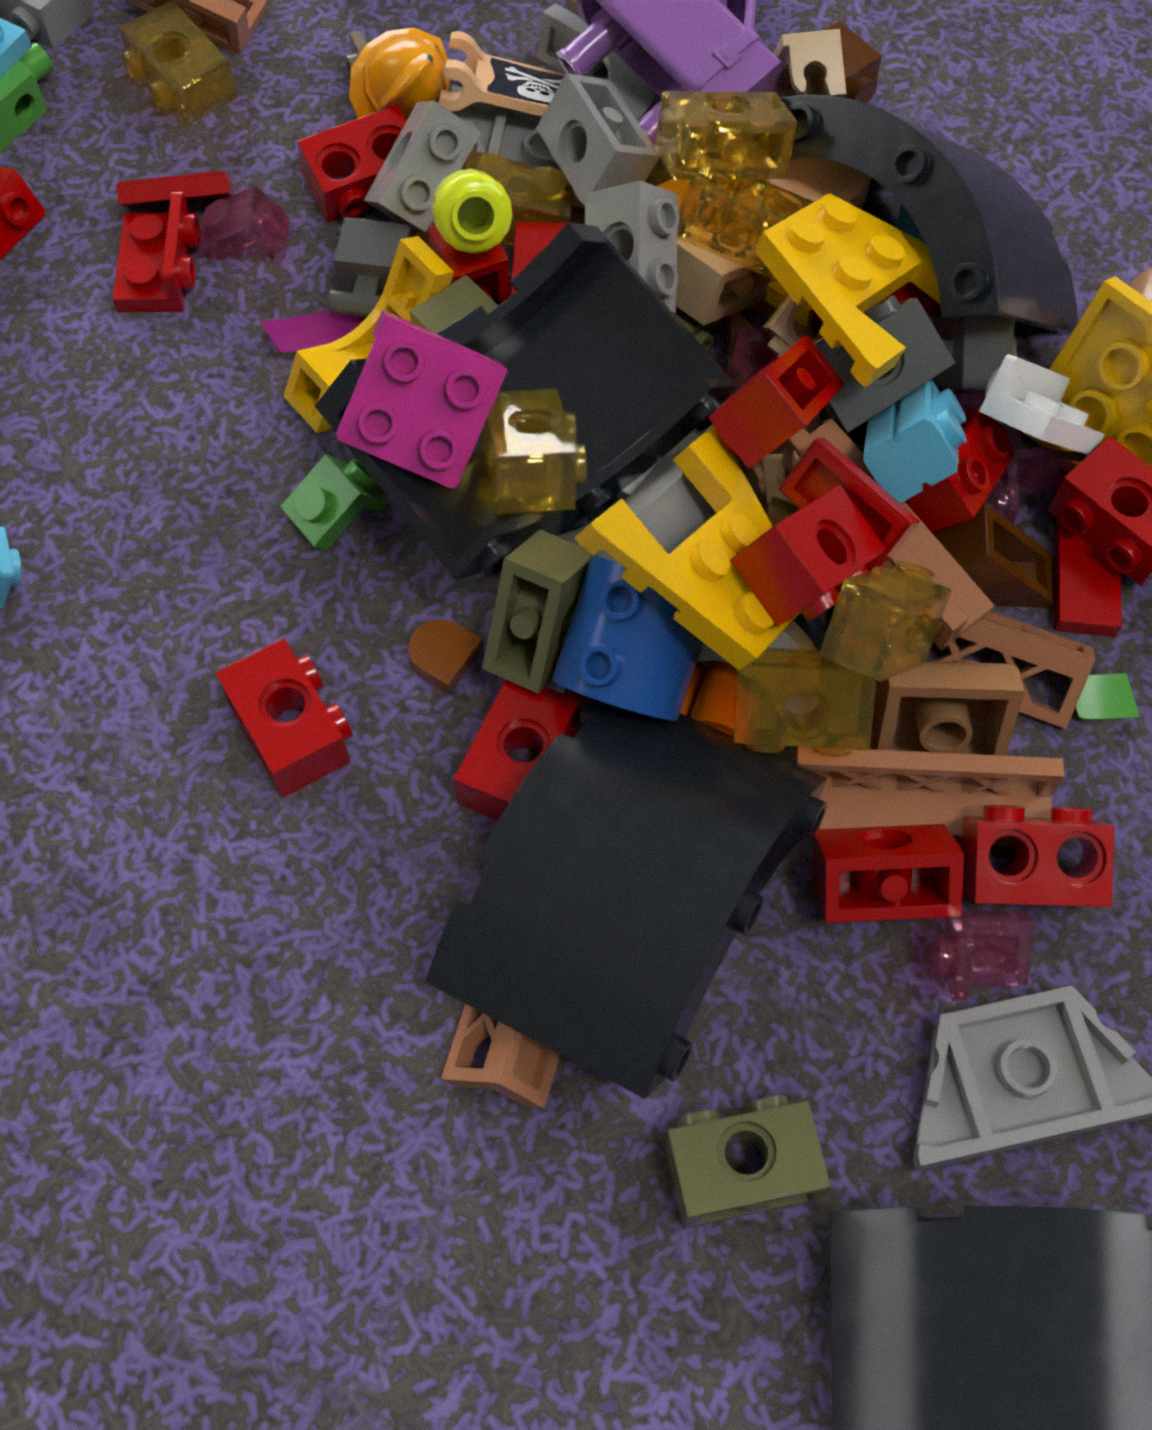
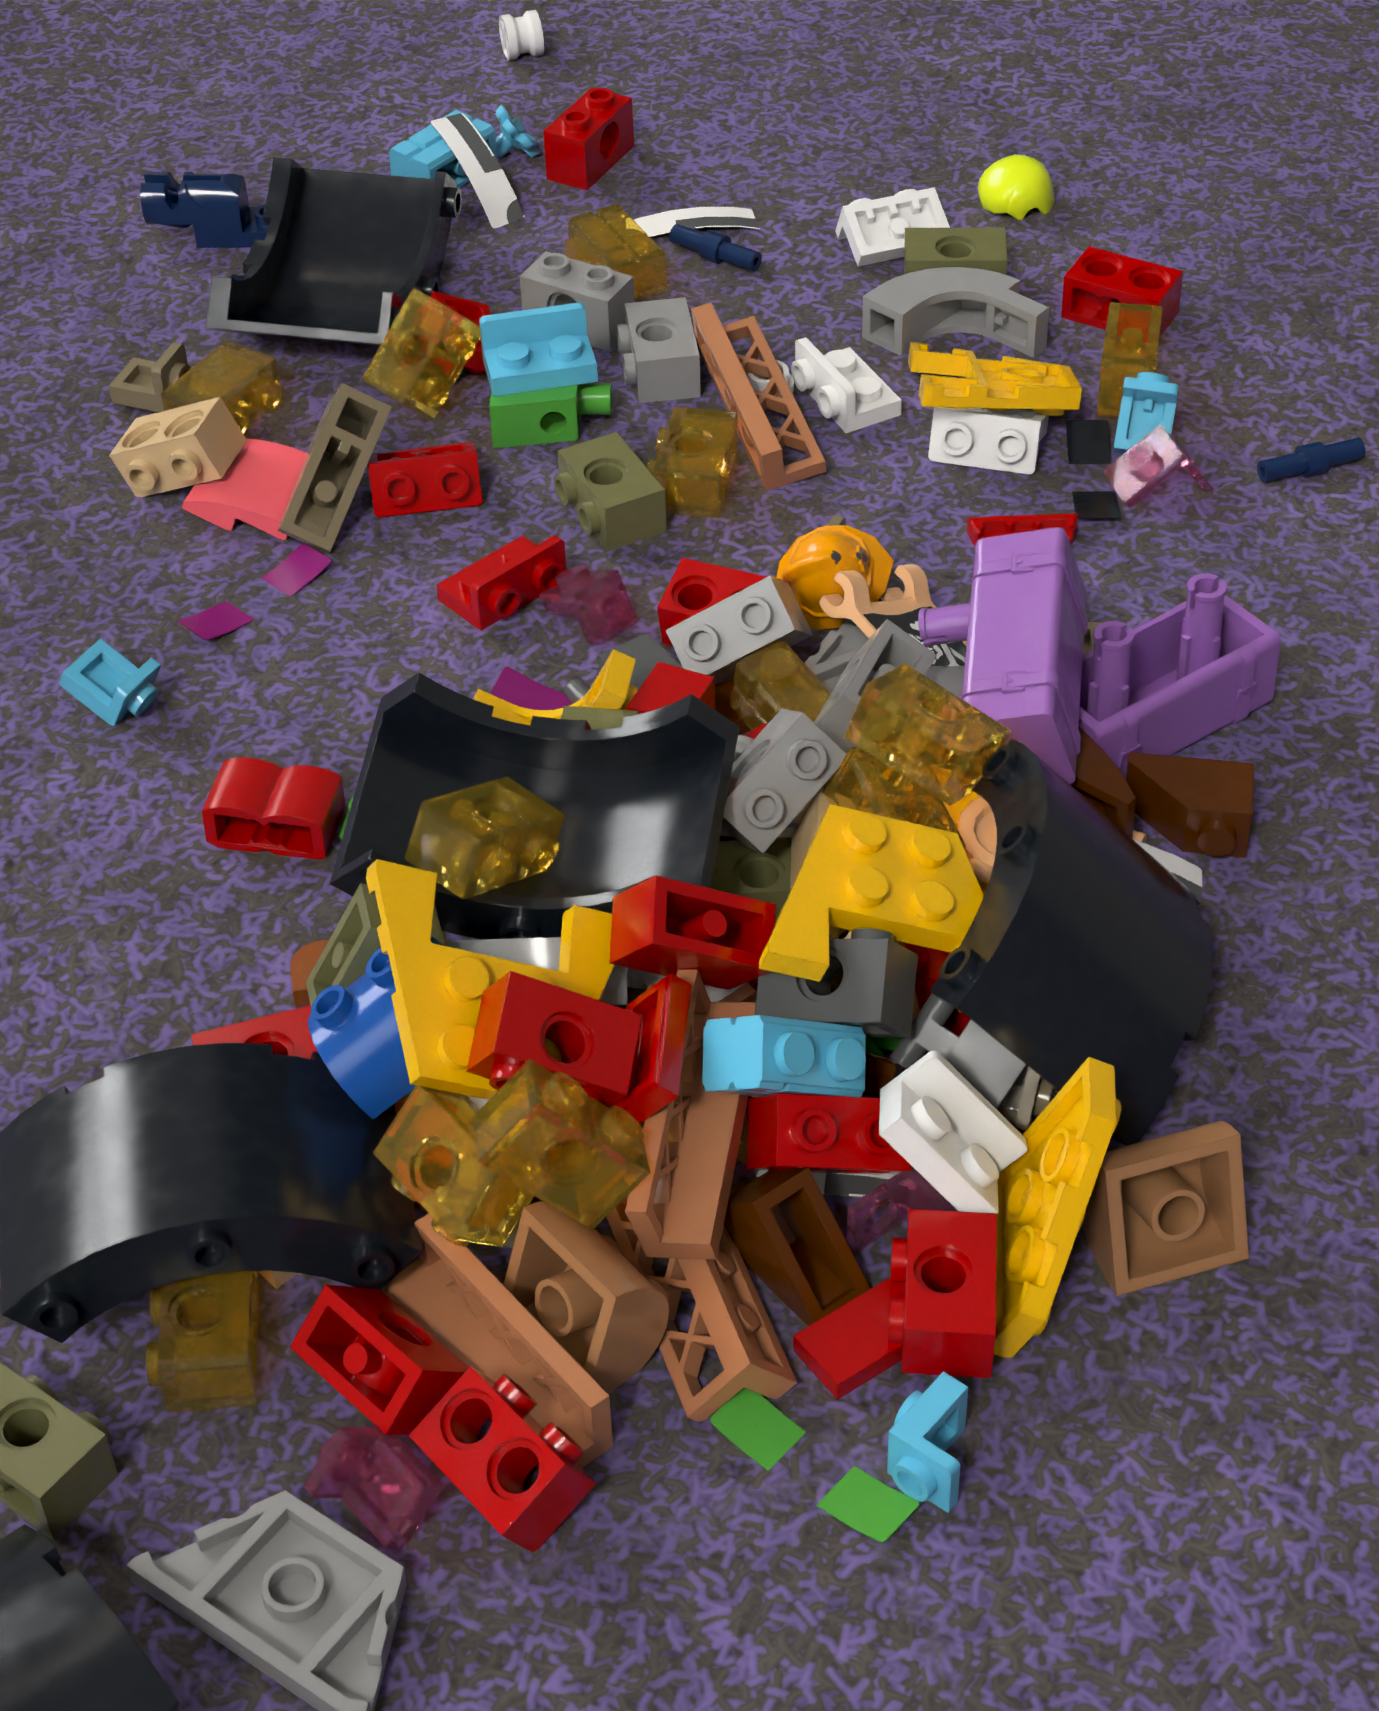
camera: 50 degrees right, 20 degrees down
(146, 129) = (611, 491): none -> olive brick
(158, 190) = (575, 541): red tile -> none
(242, 564) = (274, 808): none -> red brick
(294, 750) = (162, 920): red brick -> none
(420, 400) = (447, 732): dark pink bracket -> none
(471, 211) = (675, 658): neon yellow head -> none
(779, 982) = (206, 1342): none -> clear yellow brick
(812, 63) = (1102, 754): tan hinge -> none

